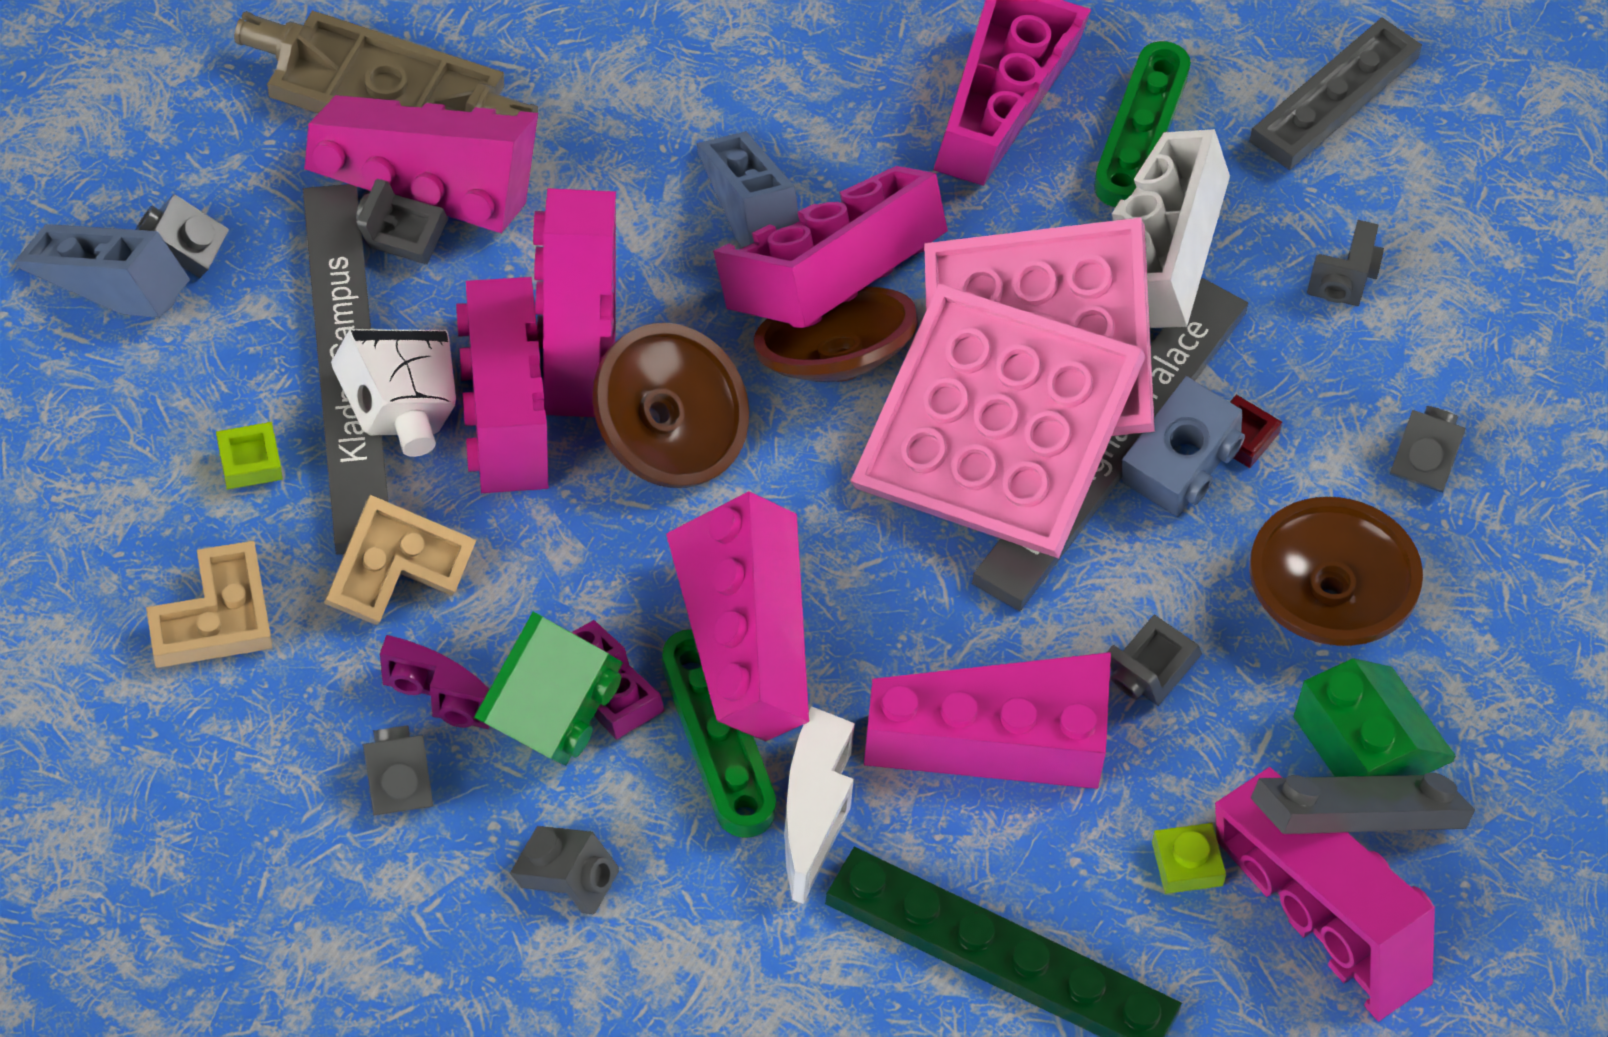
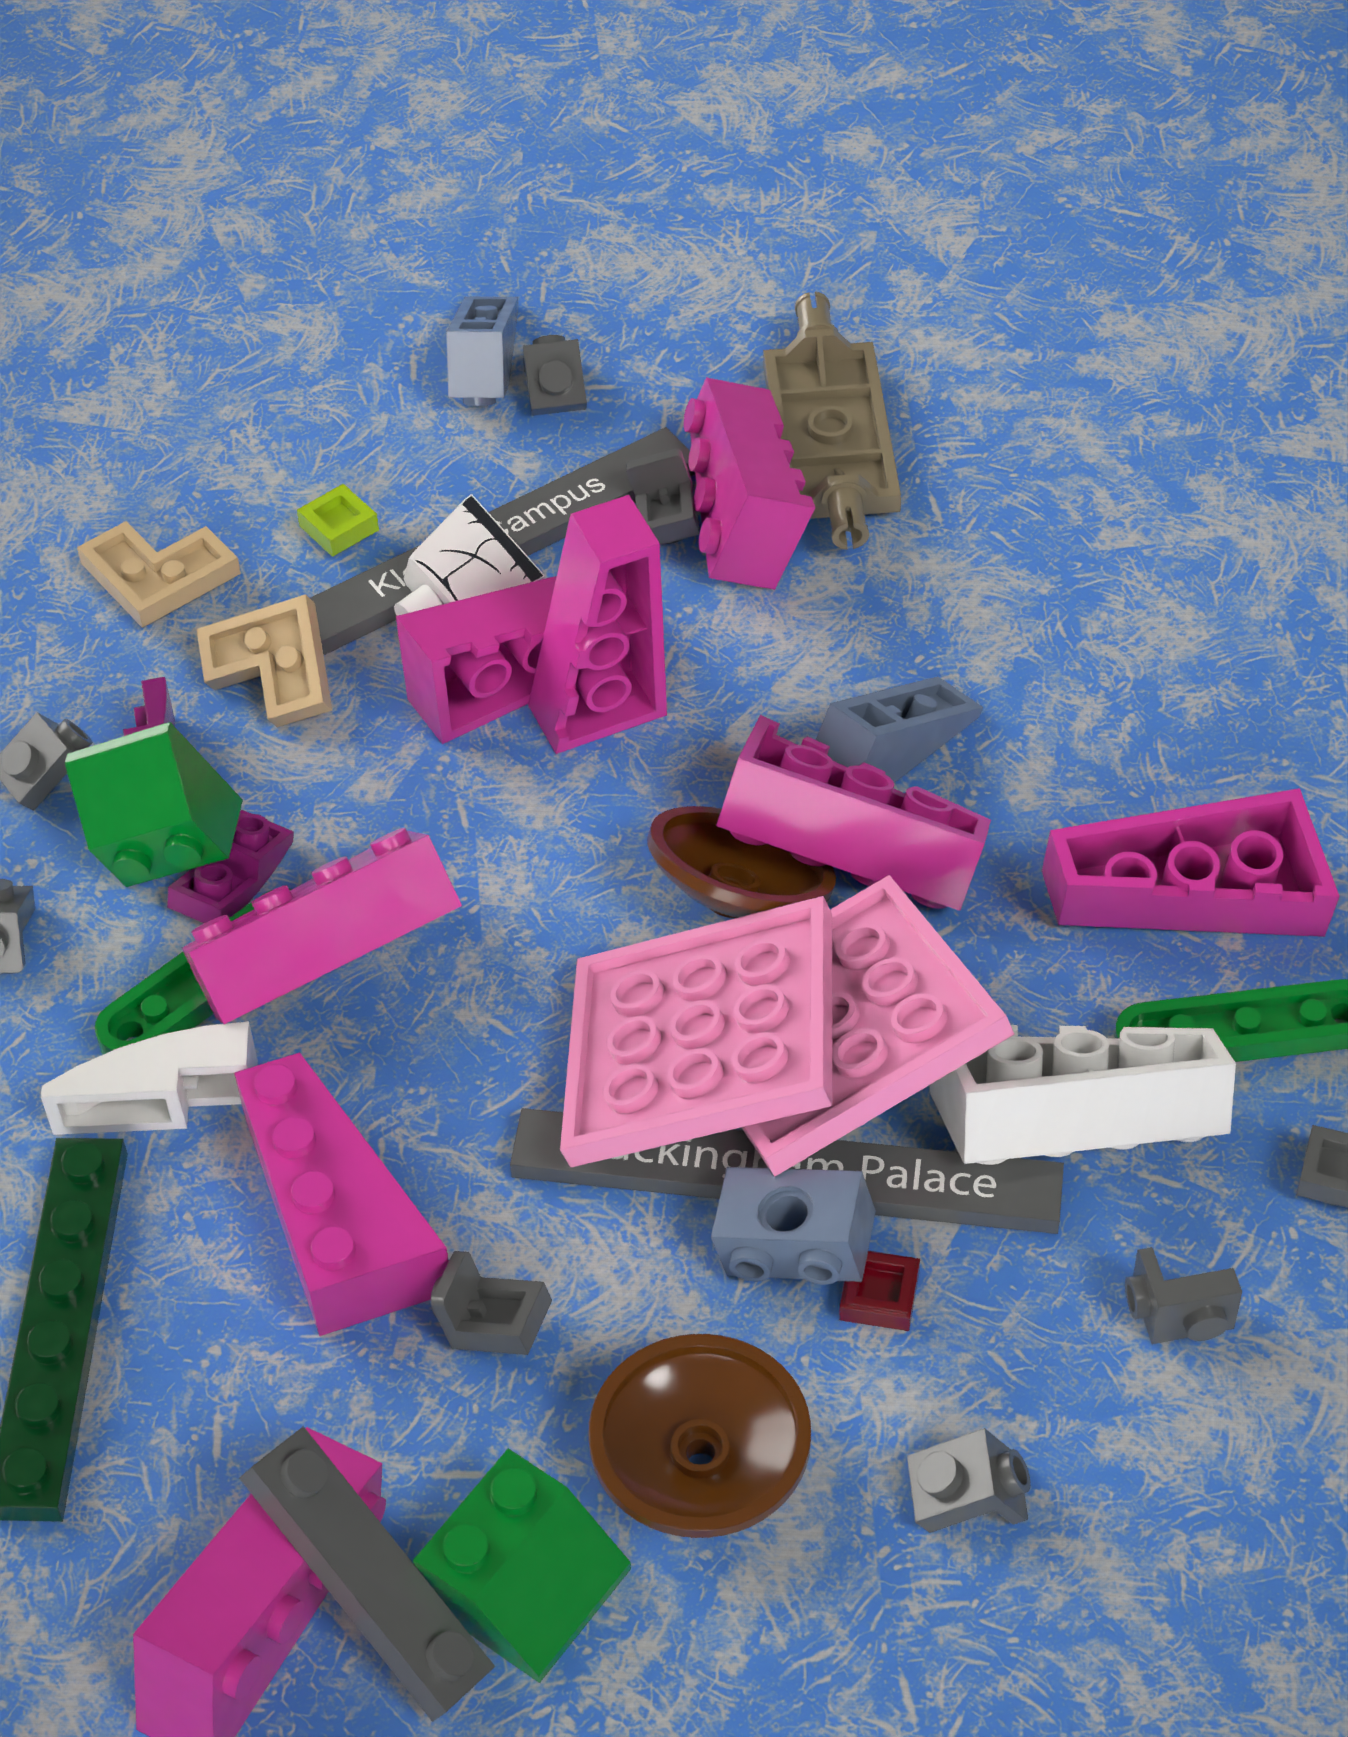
camera: 70 degrees right, 5 degrees down
(692, 390) = (536, 735): reddish brown dish -> none
(1188, 858) = (249, 1440): lime plate -> none

